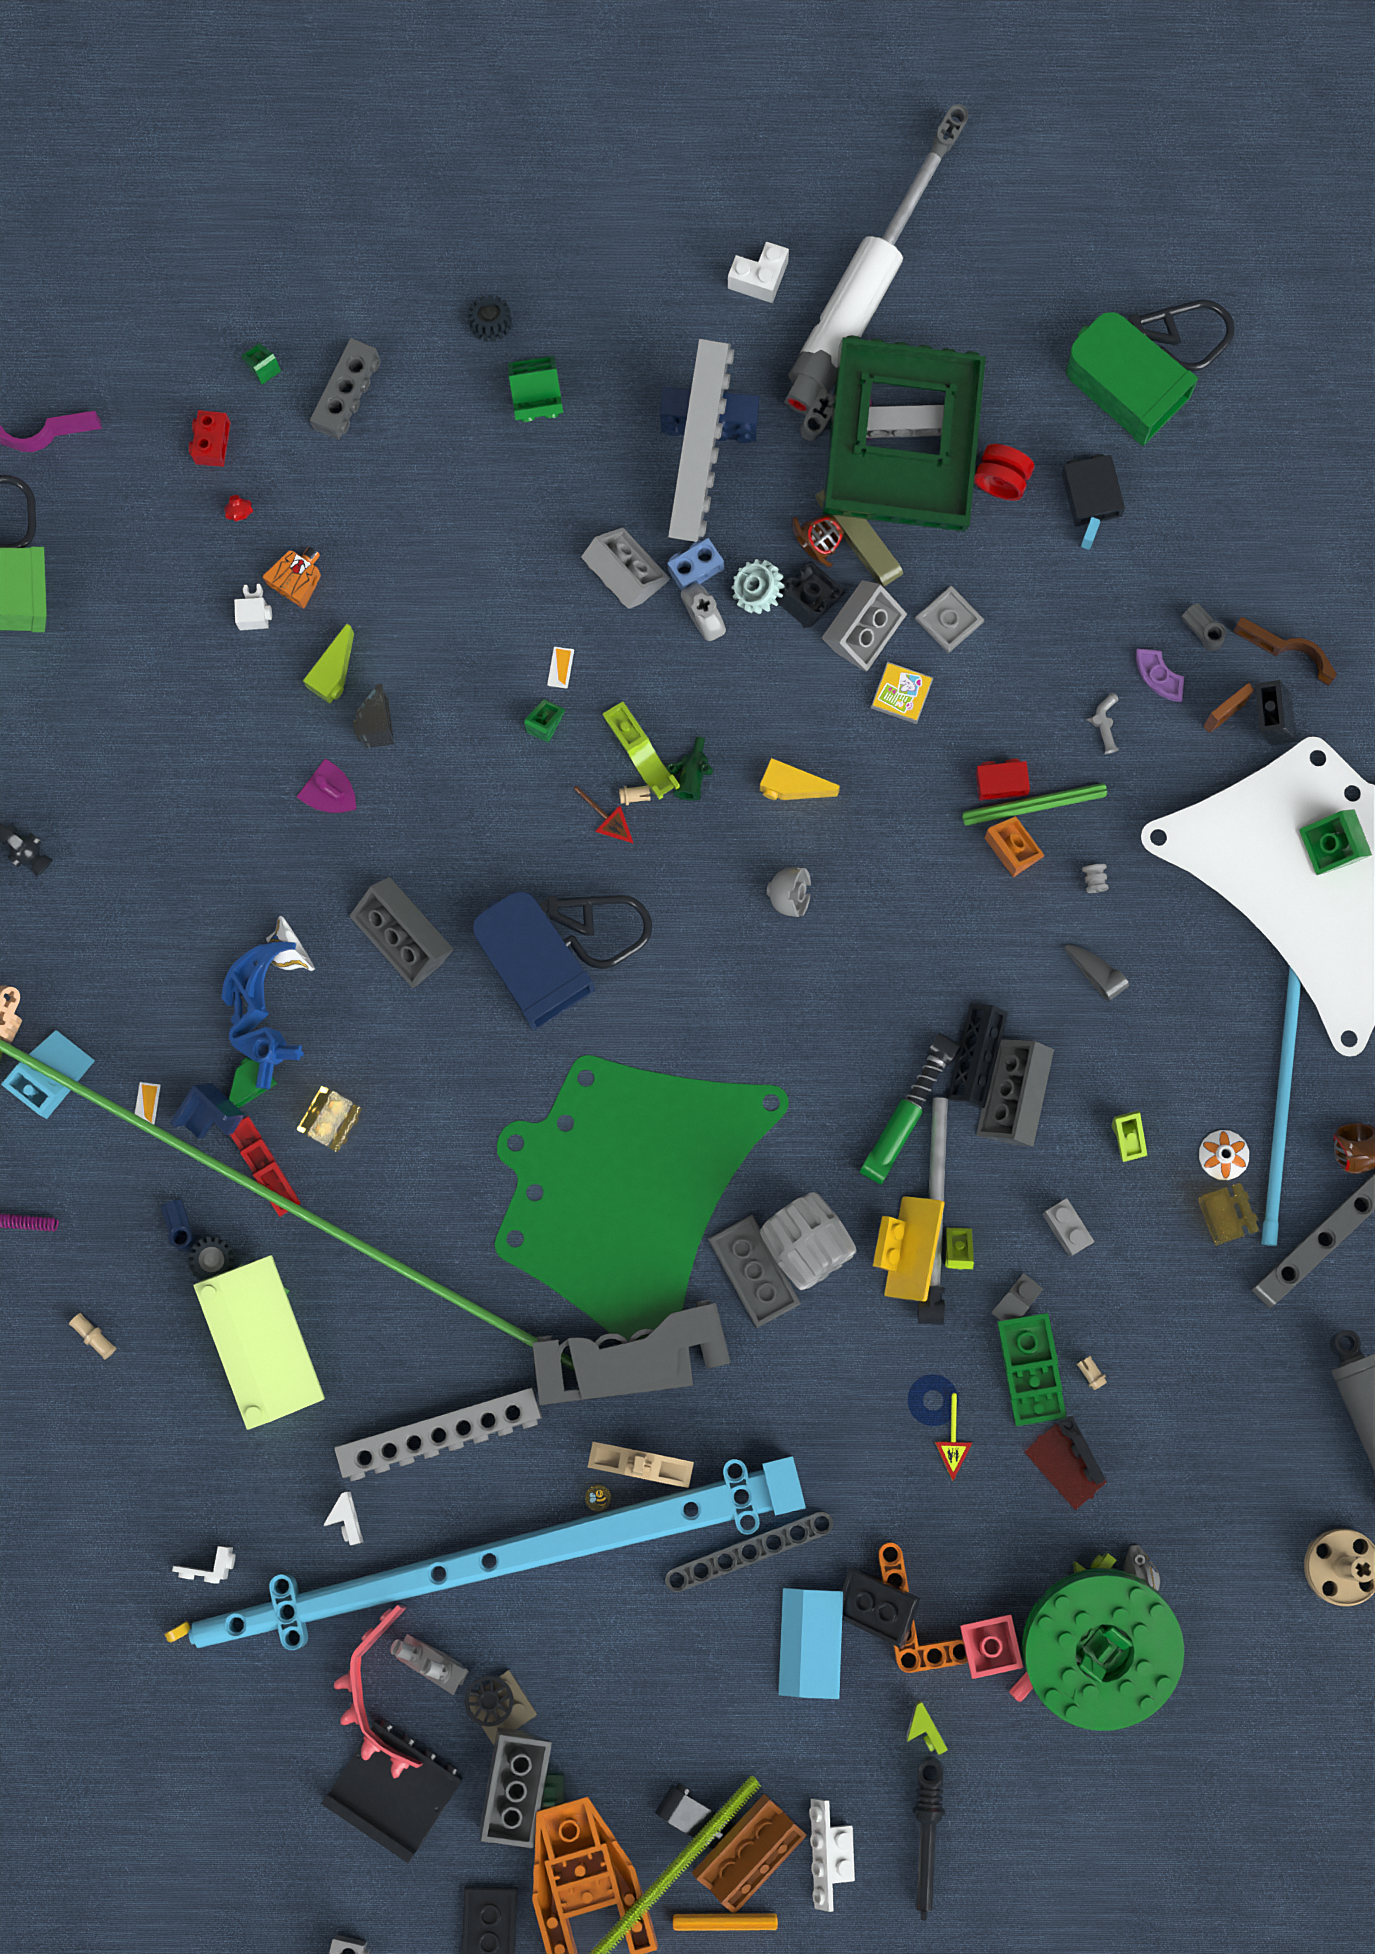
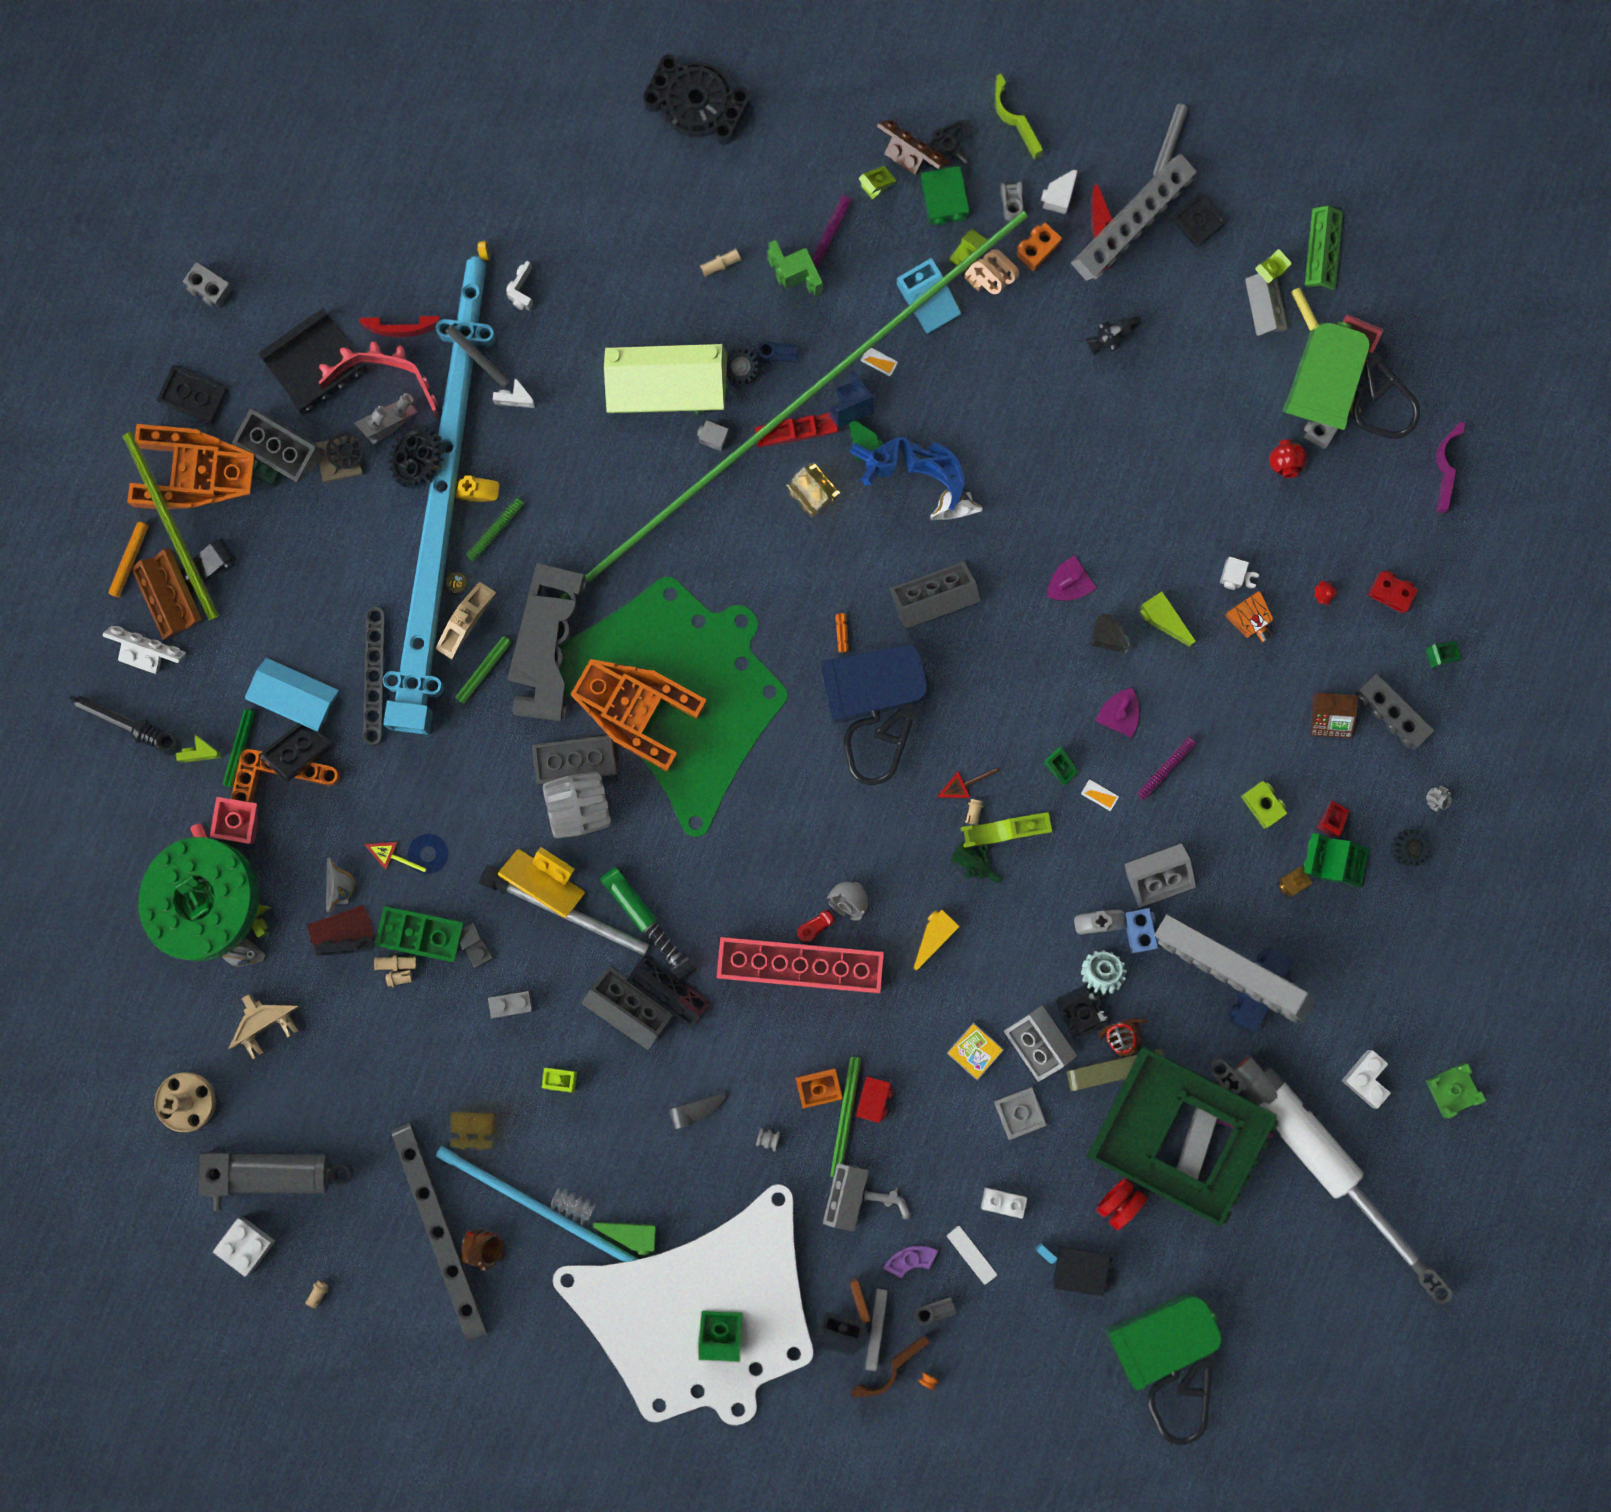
camera: 105 degrees right, 5 degrees up
(57, 570) = (1321, 441): none -> light grey brick
(69, 1241) = (794, 269): none -> bright green bracket
(98, 603) = (1288, 459): none -> red plant
(306, 1261) = (713, 435): none -> light grey brick
(312, 1583) = (460, 339): none -> dark grey piece
(319, 1730) = (425, 325): none -> red slope
(349, 1454) = (560, 415): light grey brick -> none
(373, 450) = (1333, 715): none -> reddish brown slope
(424, 308) = (1439, 798): none -> light grey gear
(442, 1601) = (407, 466): none -> black gear
(458, 679) = (1120, 712): none -> magenta shield
(476, 1517) = (476, 489): none -> yellow piece
(485, 1020) = (842, 633): none -> orange axle
(491, 409) = (1333, 819): none -> red slope
(501, 500) = (1253, 800): none -> lime brick
(503, 605) = (1164, 766): none -> magenta piece
(538, 1488) = (503, 517): none -> bright green piece
(575, 424) = (1294, 882): none -> pearl gold brick
(661, 1233) = (624, 701): none -> orange wedge
(690, 1422) = (482, 671): none -> bright green axle
(734, 183) = (1454, 1090): none -> bright green panel
(839, 923) = (812, 928): none -> red piece
(887, 917) = (800, 965): none -> coral brick
(900, 1682) = (239, 747): none -> green axle
(959, 1248) = (528, 917): lime slope -> none
(1015, 1489) = (339, 885): none -> light grey hat
(1055, 597) = (1003, 1202): none -> white brick
(1076, 1384) = (394, 963): none -> tan pin
(1123, 767) = (845, 1197): none -> light grey brick
(1125, 613) = (971, 1255): none -> white sticker
(1207, 1518) = (257, 1019): none -> tan connector
(1215, 1163) = (529, 1143): white dish -> none
(1233, 684) = (876, 1330): none -> light grey beam
(1263, 1065) = (572, 1205): none -> clear piece
(1267, 984) = (634, 1236): none -> bright green slope
(1282, 604) = (928, 1381): none -> orange bush

